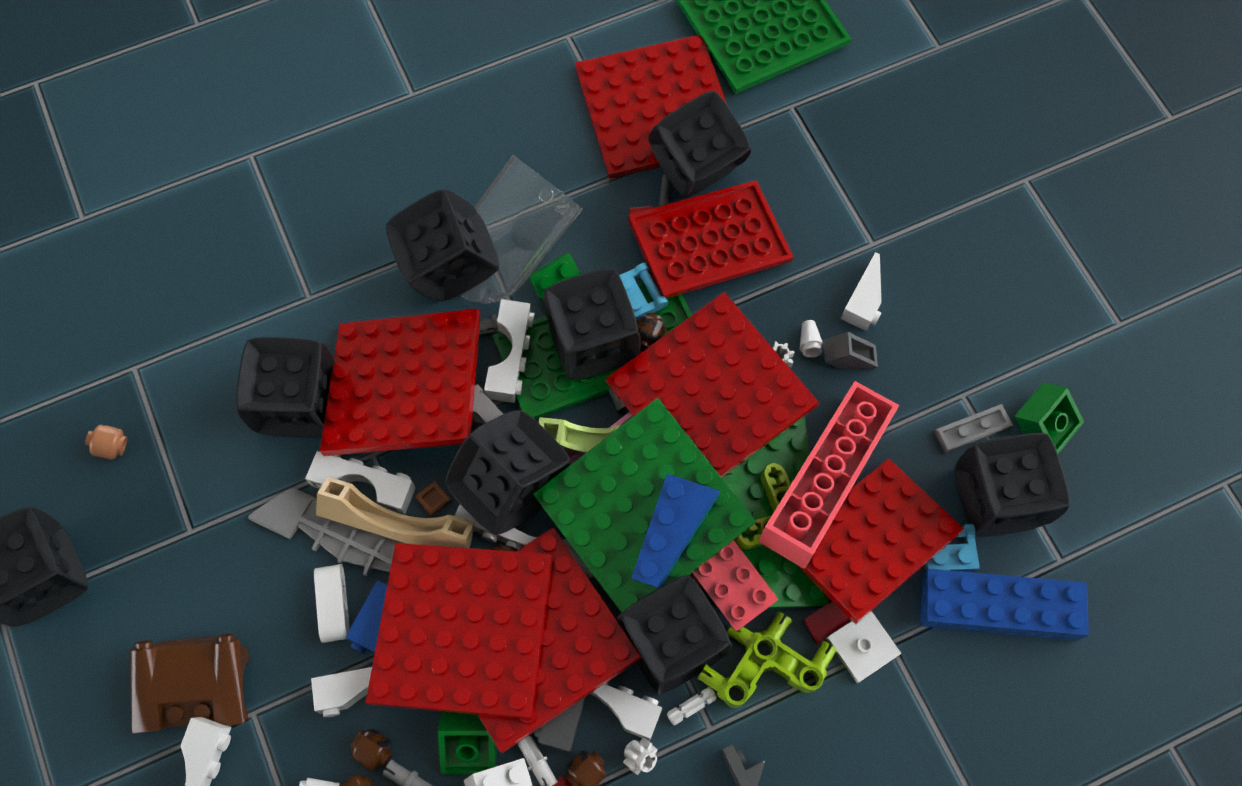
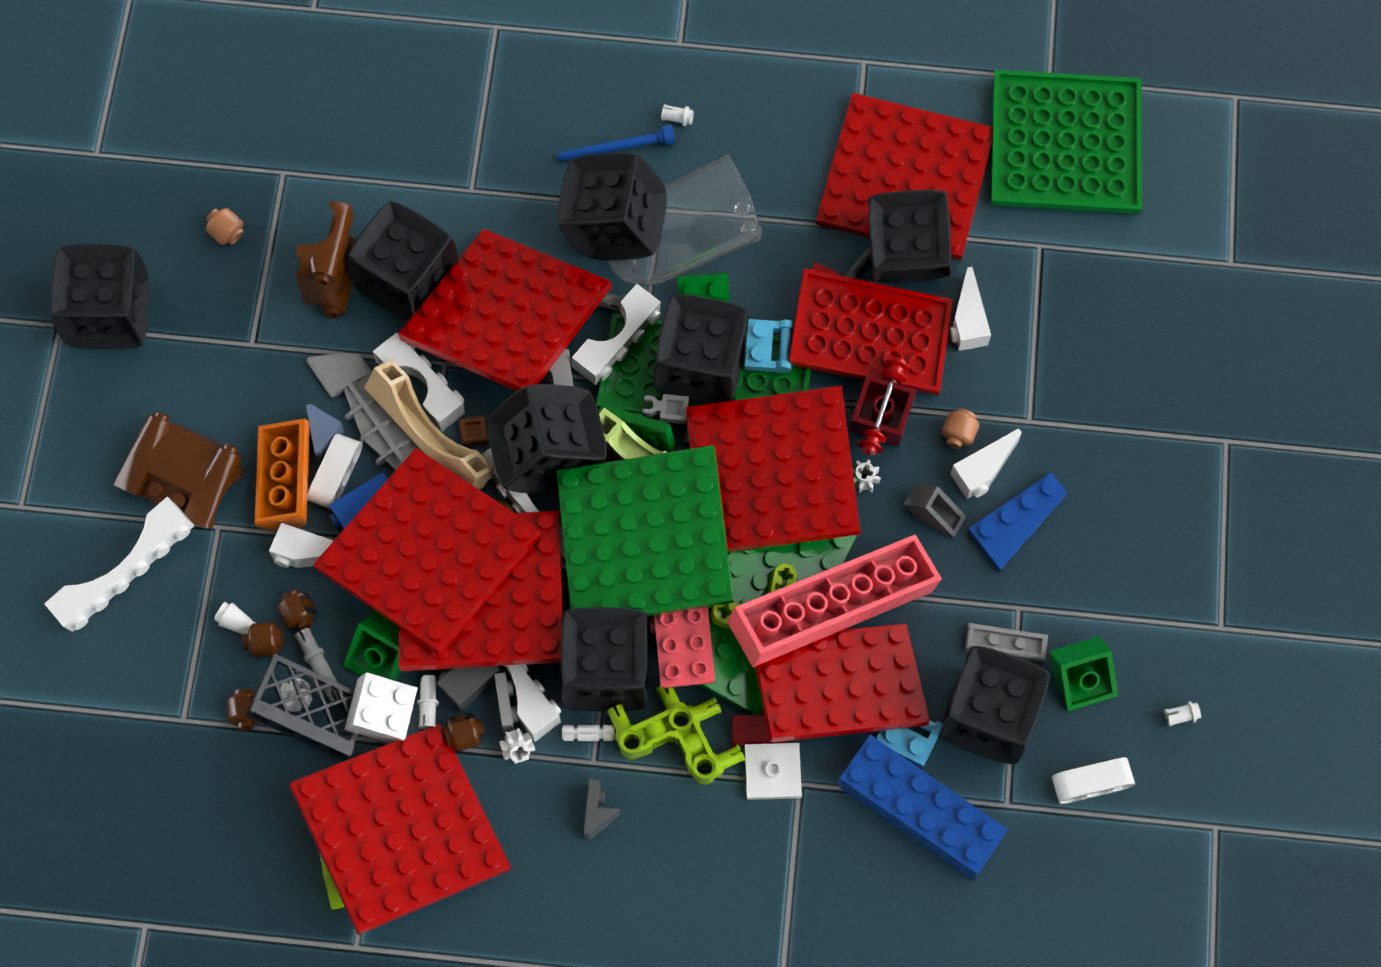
camera: 30 degrees right, 0 degrees up
(219, 429) = (323, 266): none -> reddish brown piece
(286, 634) = (282, 474): none -> orange brick
(300, 572) = (323, 429): none -> sand blue slope
(445, 149) = (677, 114): none -> white pin
(445, 171) = (663, 136): none -> blue piece
(591, 387) = (671, 408): none -> light grey plate
(591, 415) = (653, 432): none -> green wing
(599, 712) = (504, 691): none -> light grey plate
(650, 329) = (755, 384): reddish brown head -> none
(674, 522) = (653, 563): blue wedge -> none
(761, 292) = (883, 408): none -> dark red brick
(779, 189) = (970, 322): none -> white slope
(810, 341) = (905, 477): white cone -> none
(828, 277) = (960, 428): none -> nougat head
(916, 329) = (1011, 525): none -> blue wing
(1115, 501) = (1093, 780): none -> white beam
(1145, 404) = (1182, 714): none -> white pin

